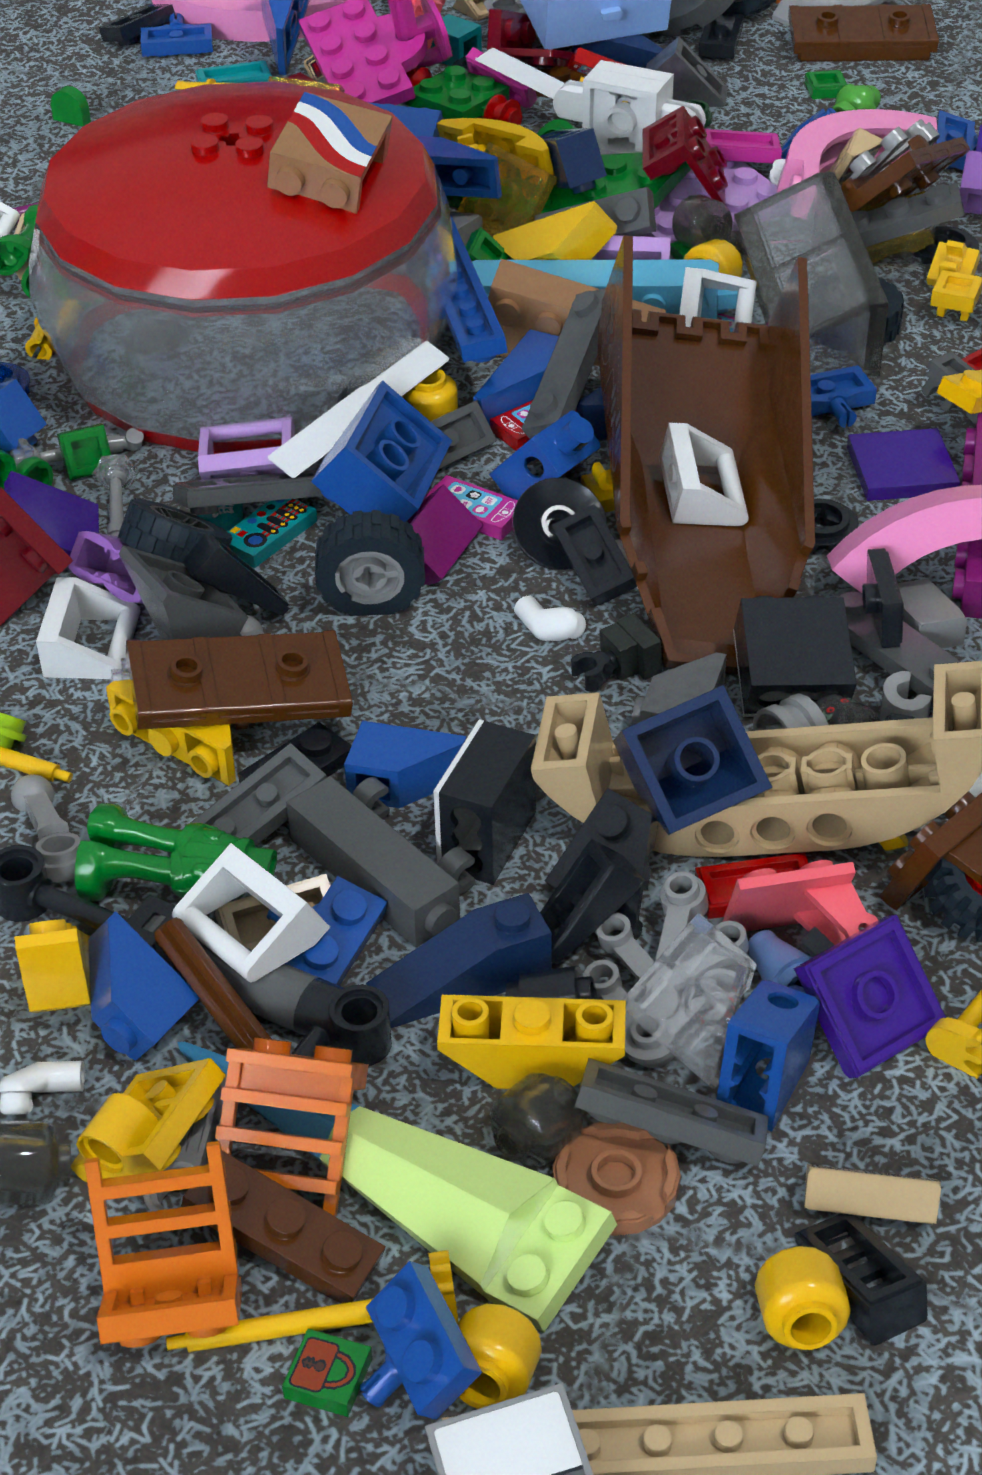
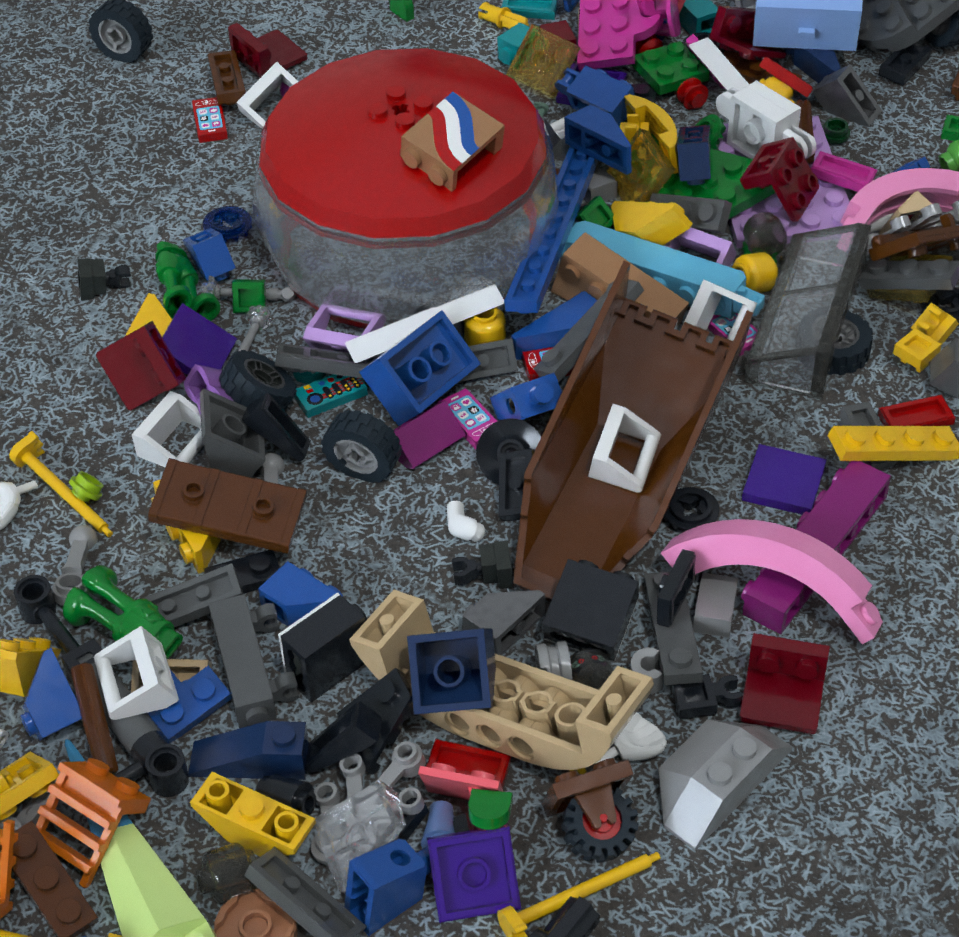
camera: 25 degrees right, 5 degrees up
(839, 392) = (767, 405): blue plate -> none
(857, 901) = (489, 808): none -> green tile

